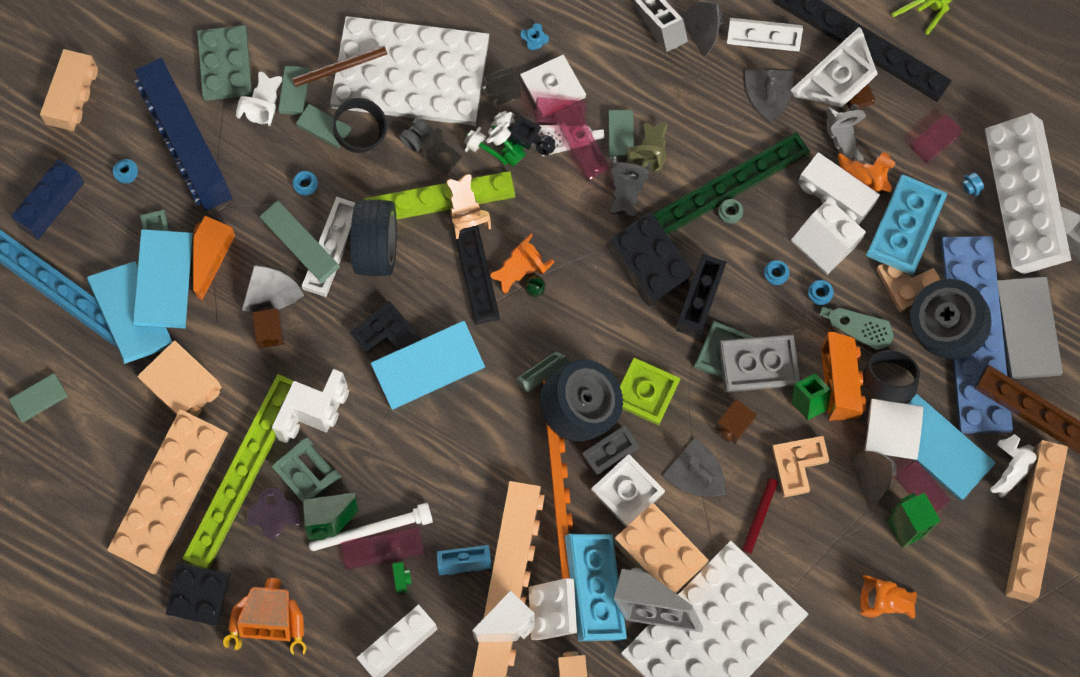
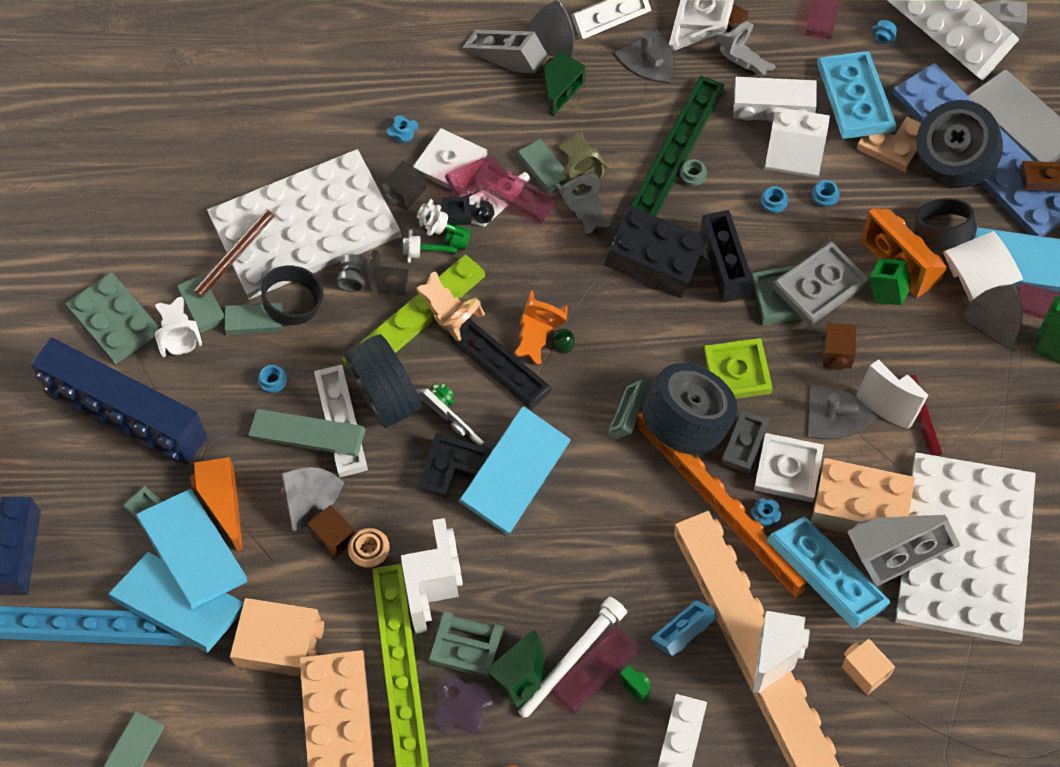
camera: 30 degrees left, 10 degrees down
(127, 177) = (81, 480): dark azure plate -> none
(285, 351) = (368, 547): none -> light nougat cone
(411, 303) = (457, 424): none -> white piece
(415, 273) = (443, 393): none -> green plate
(553, 609) = (809, 601): white plate -> none
(584, 519) = (766, 519): none -> dark azure plate
(682, 71) = (562, 80): none -> dark green slope
(742, 493) = (891, 398): none -> white slope
(793, 458) = (915, 348): light nougat plate -> none
(857, 324) = (906, 205): sand green piece -> none
(871, 175) = (795, 68): orange hair -> none

